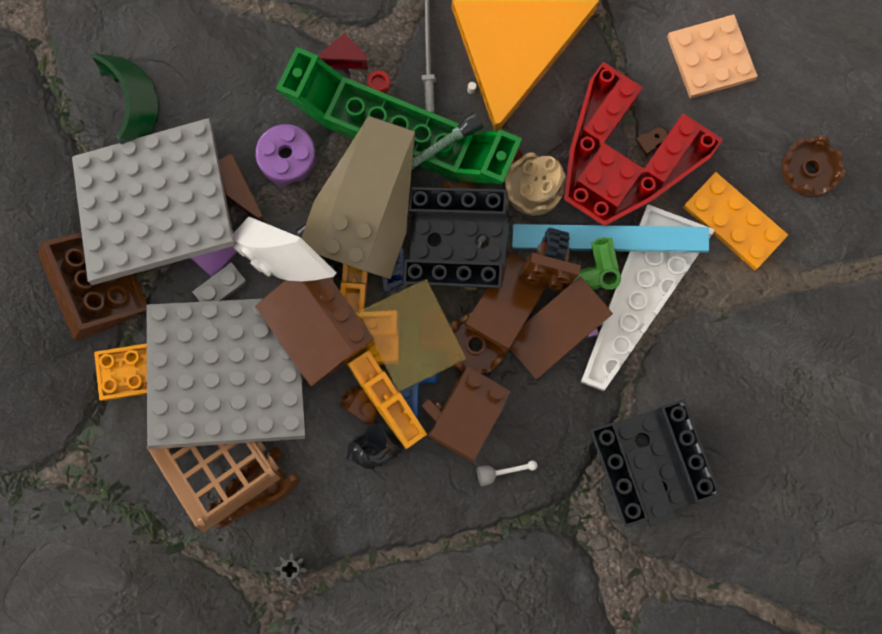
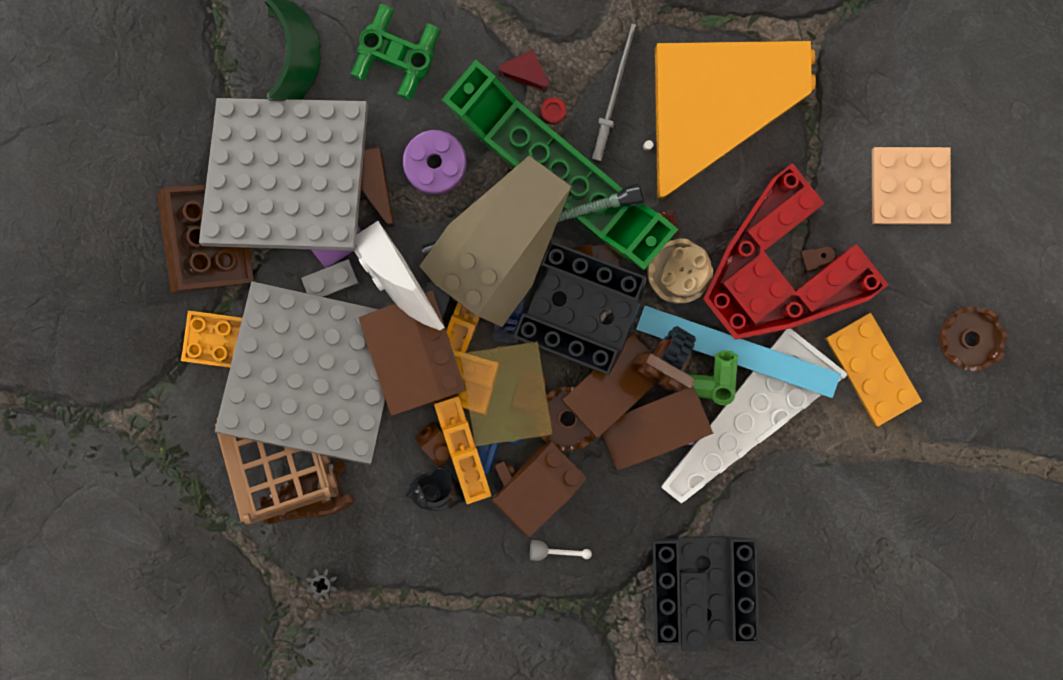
camera: 20 degrees right, 10 degrees up
(223, 71) = (395, 52): none -> green piece

